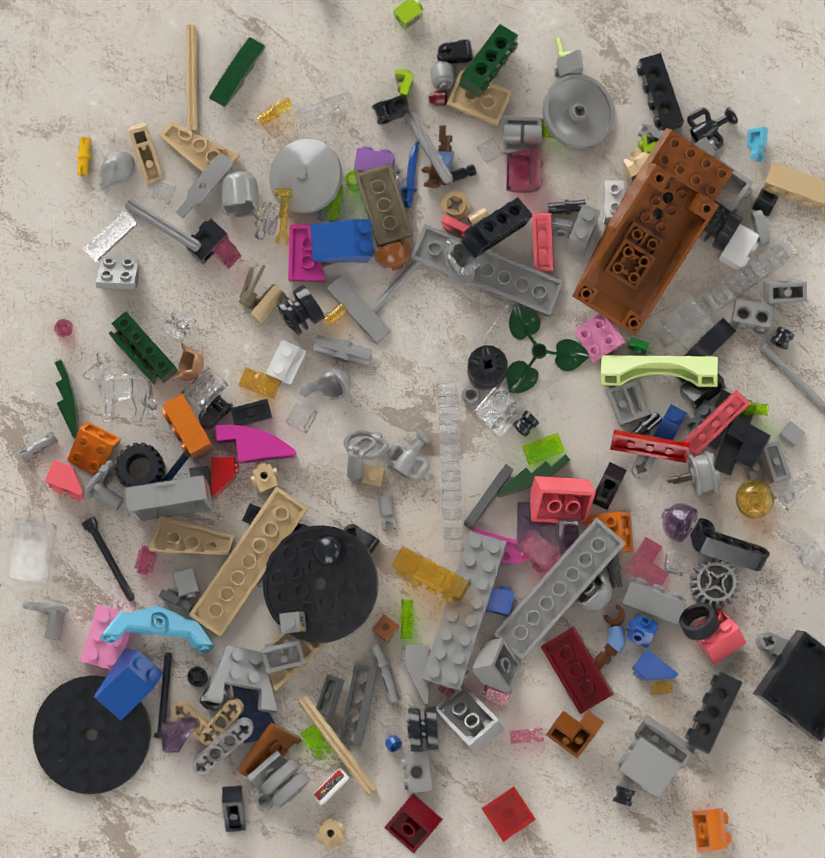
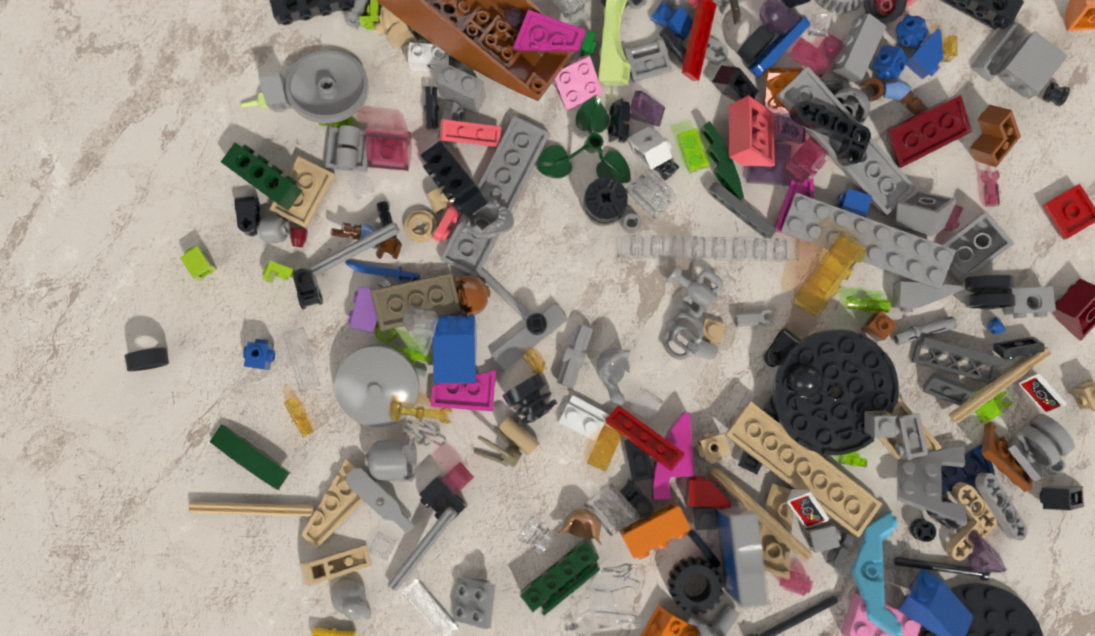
camera: 90 degrees left, 5 degrees up
(206, 522) = (764, 517): none -> tan axle
(213, 564) = (806, 508): none -> slope
(259, 609) = (853, 460): none -> clear neon green plate
(270, 414) = (645, 438): none -> red plate
(328, 72) = (259, 354): none -> blue brick
(360, 208) = (421, 326): none -> clear slope
(371, 315) = (536, 327): none -> black wheel
(373, 763) = (1025, 346): none -> black plate
(540, 405) = (650, 147): none -> white brick
(566, 565) = (829, 129): none -> black beam
(574, 378) = (617, 129): none -> black hinge
(579, 403) = (646, 109): none -> clear purple slope
(637, 302) = (548, 34): none -> dark pink wing
(648, 500) = (756, 44): none -> black tyre
(650, 525) = (778, 47): none -> blue beam
(654, 272) = (513, 16): none -> plate
(674, 650) = (911, 31): none -> blue brick

